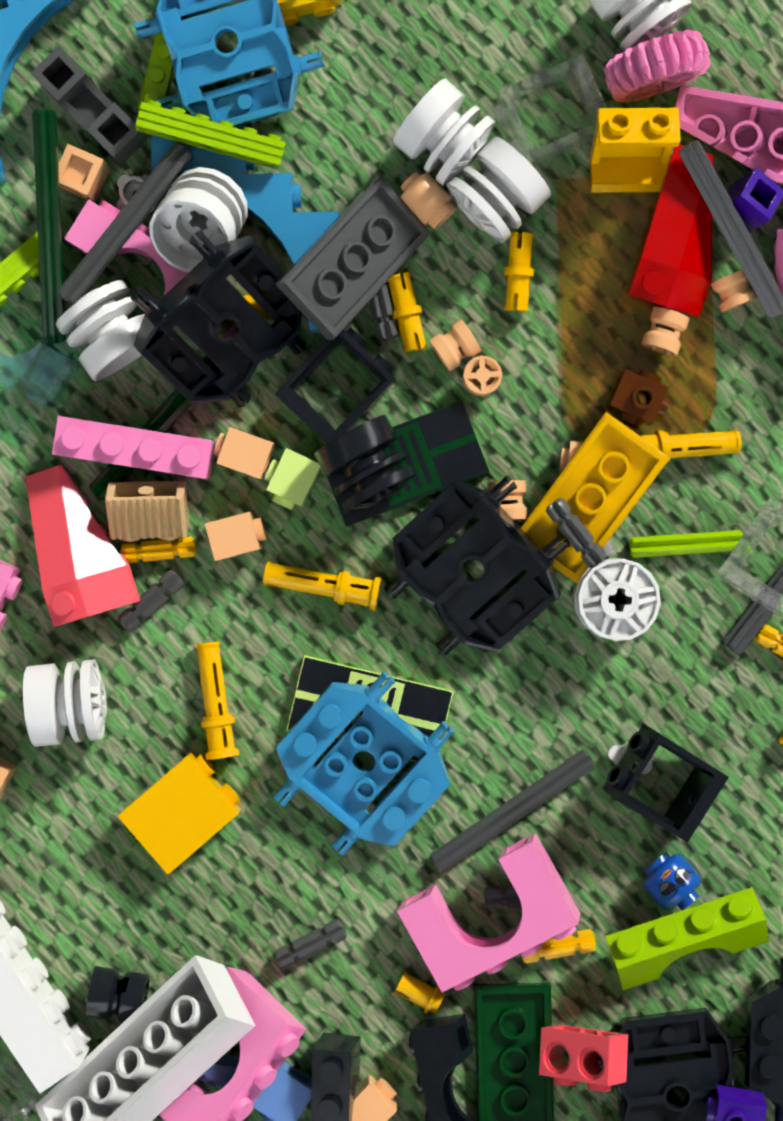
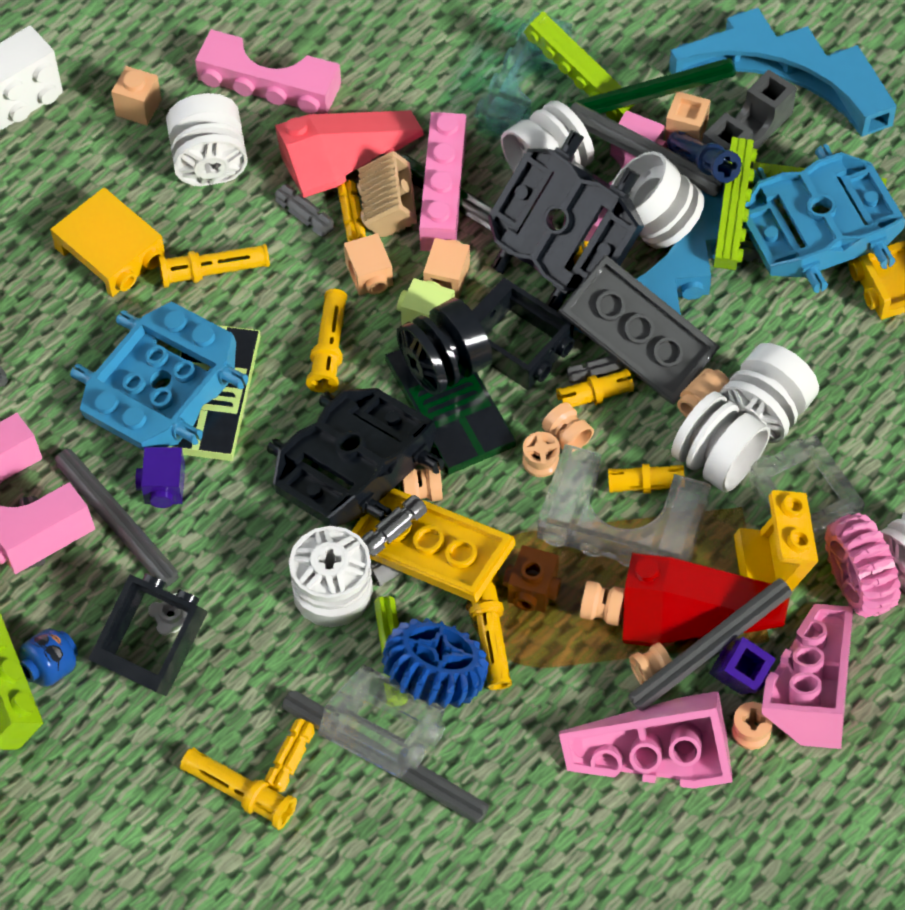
camera: 90 degrees right, 30 degrees down
(160, 153) = (709, 157): none -> dark blue pin
(477, 764) = (161, 476): none -> dark purple brick
(604, 261) = (571, 522): none -> clear arch
(711, 487) = (434, 663): none -> blue gear

